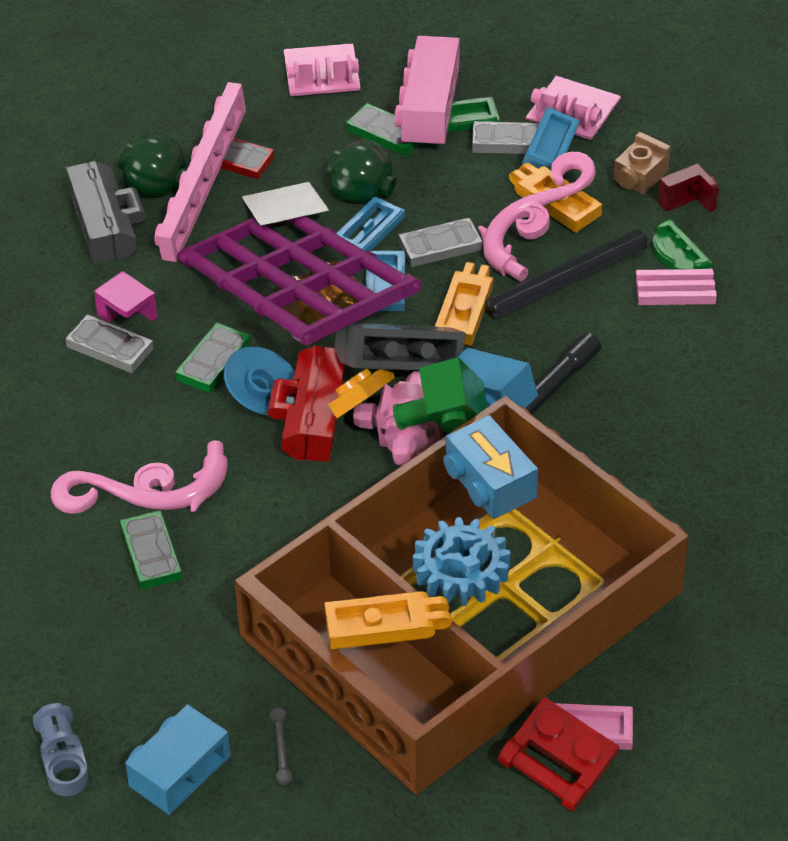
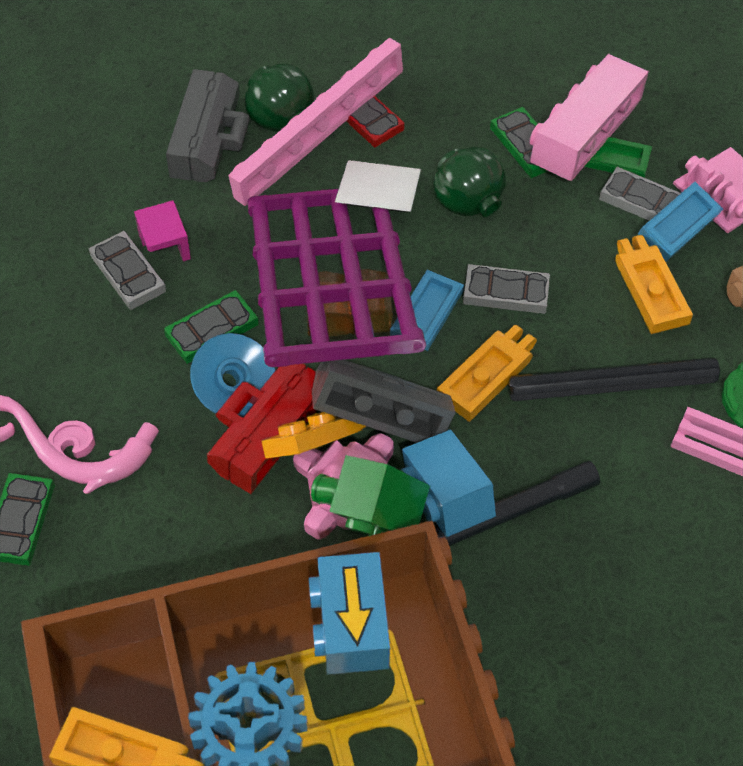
camera: 25 degrees right, 10 degrees up
(322, 69) = (502, 54): bright pink hinge -> none
(374, 229) = (477, 232): dark azure tile -> none
(532, 207) = (614, 287): bright pink plant -> none

